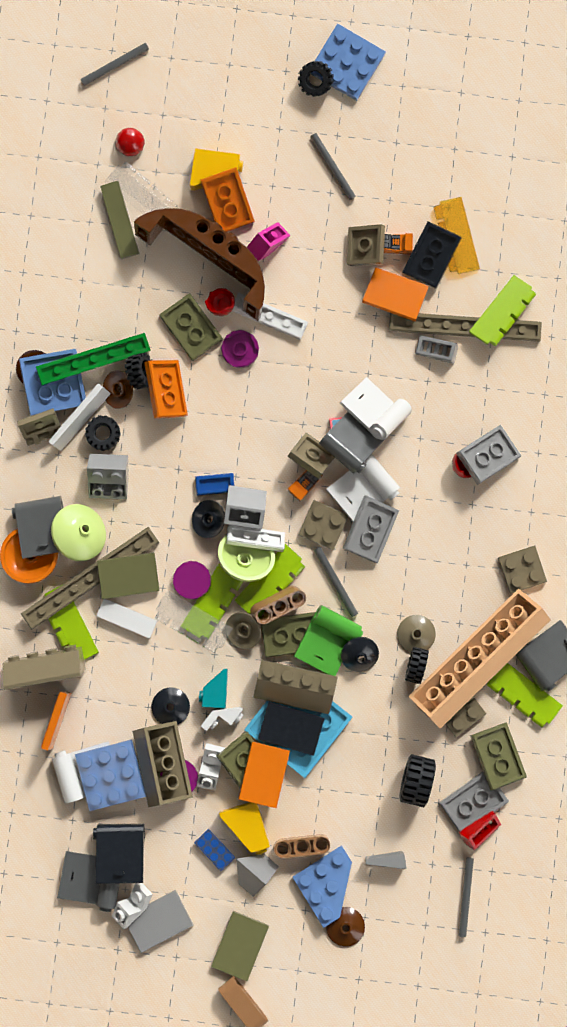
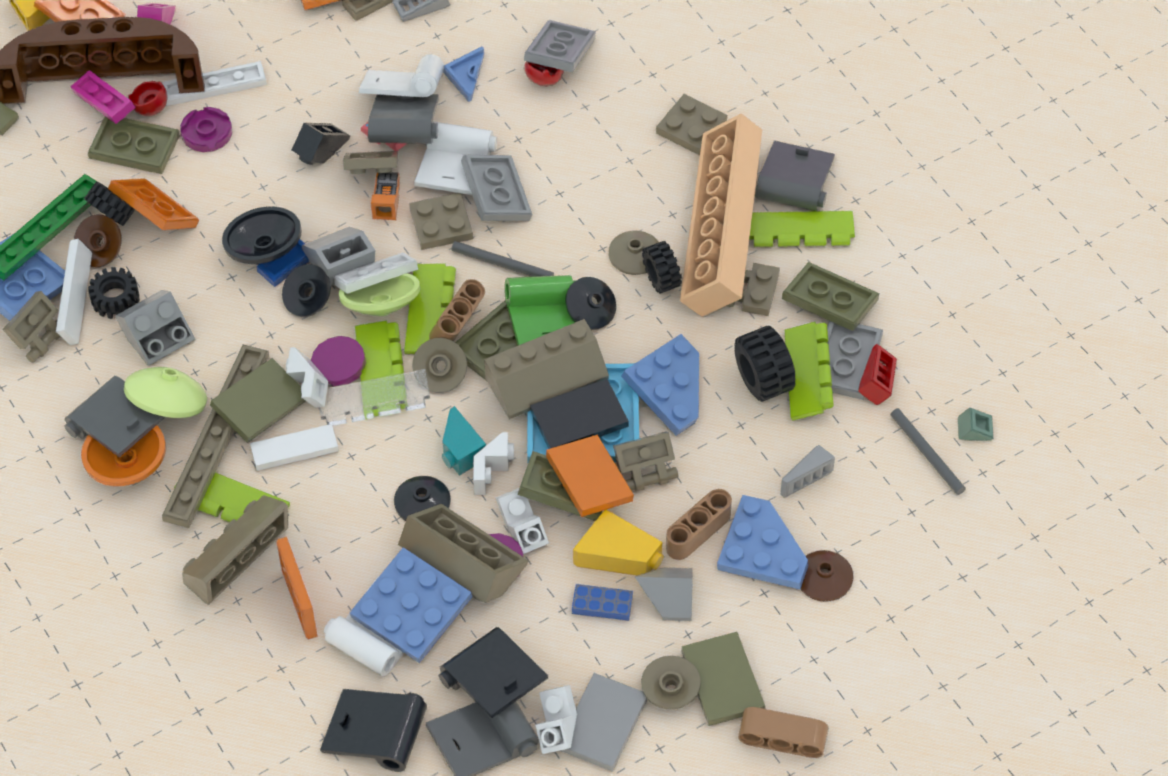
camera: 35 degrees left, 30 degrees down
(40, 833) = (375, 726): none -> black door
(166, 575) = (313, 381): none -> white slope
(194, 281) = (102, 97): none -> dark pink plate
(208, 940) = (670, 671): none -> dark tan dish
(209, 451) = (261, 235): none -> black dish
(296, 414) = (318, 142): none -> black slope
(304, 786) = (644, 453): none -> dark tan plate
(360, 742) = (669, 383): none -> medium blue plate
(421, 423) = (465, 72): none -> medium blue tile
(443, 791) = (811, 361): none -> lime windscreen
(506, 902) = (975, 425): none -> sand green slope

